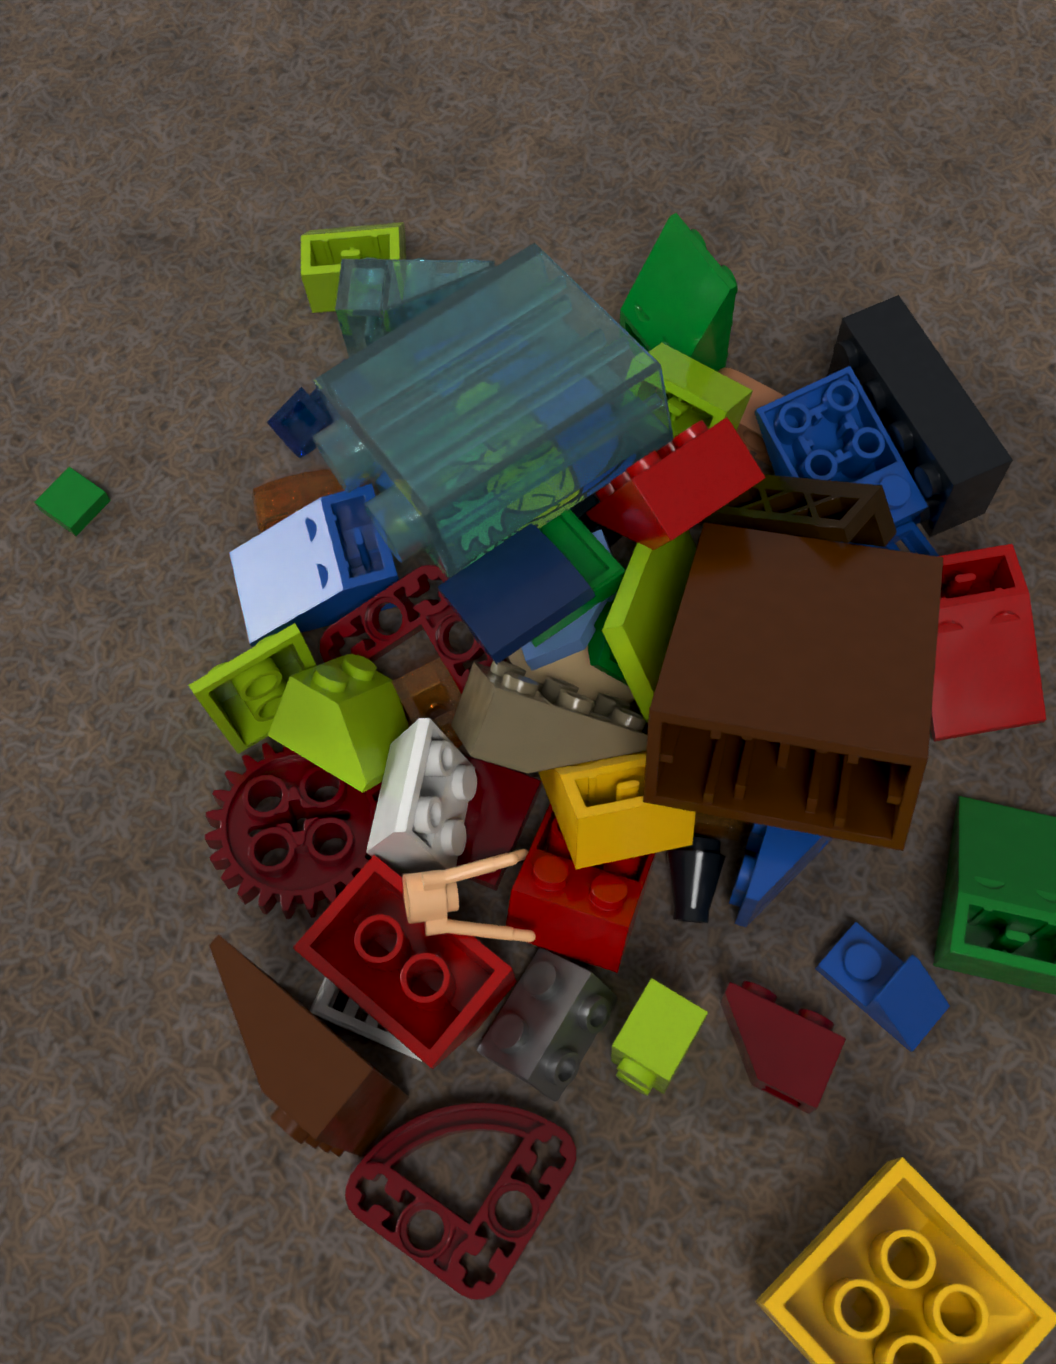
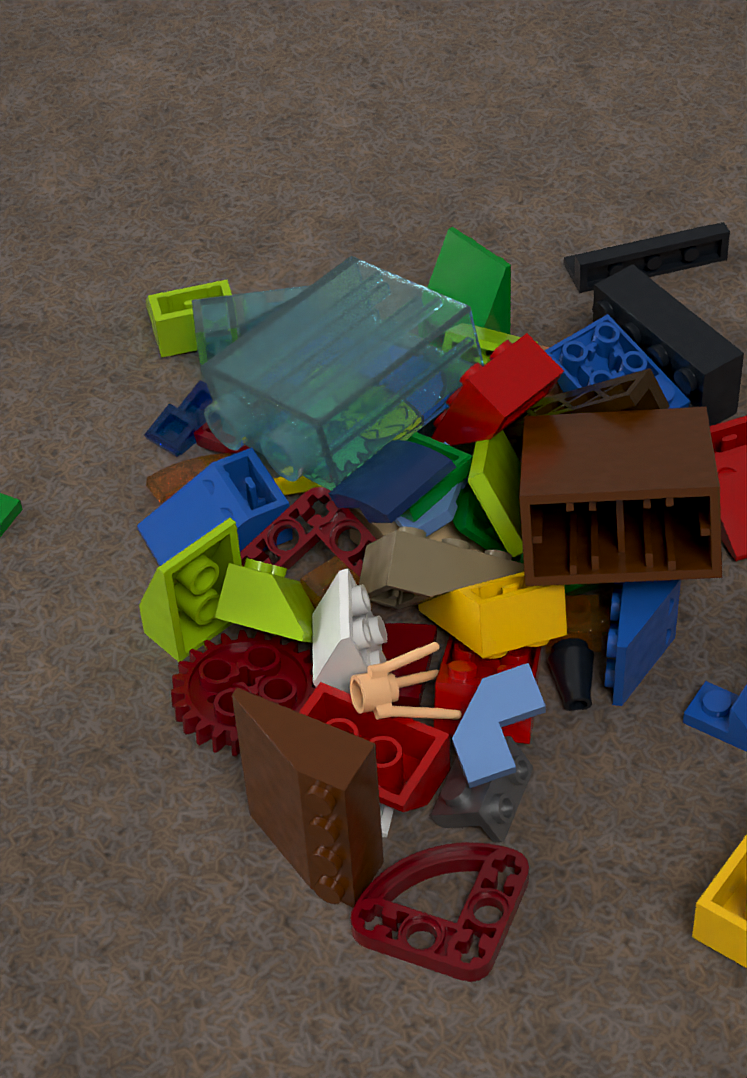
camera: 15 degrees left, 20 degrees down
(548, 982) = (496, 703): none -> medium blue tile
(656, 1038) = (572, 765): lime brick -> none
(781, 1049) = (667, 765): dark red slope -> none
(925, 262) = (651, 255): none -> black fence

